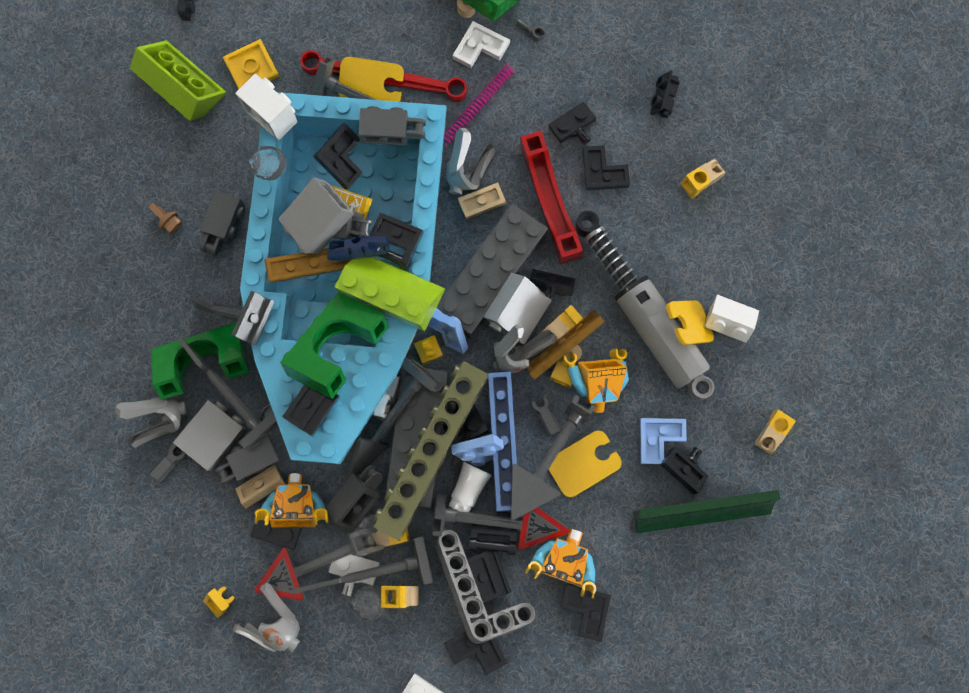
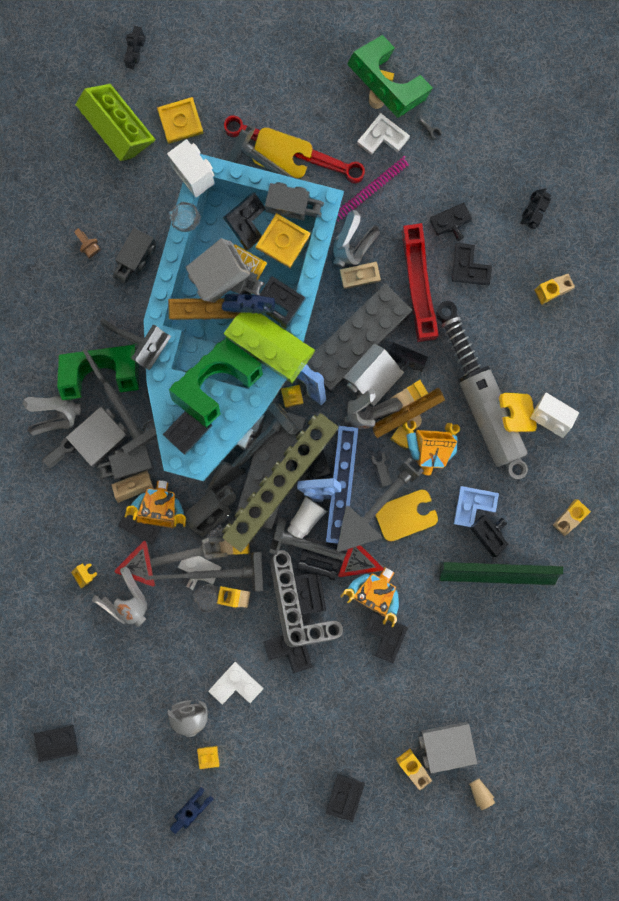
camera: 10 degrees right, 5 degrees up
(386, 171) = (283, 240): none -> yellow tile

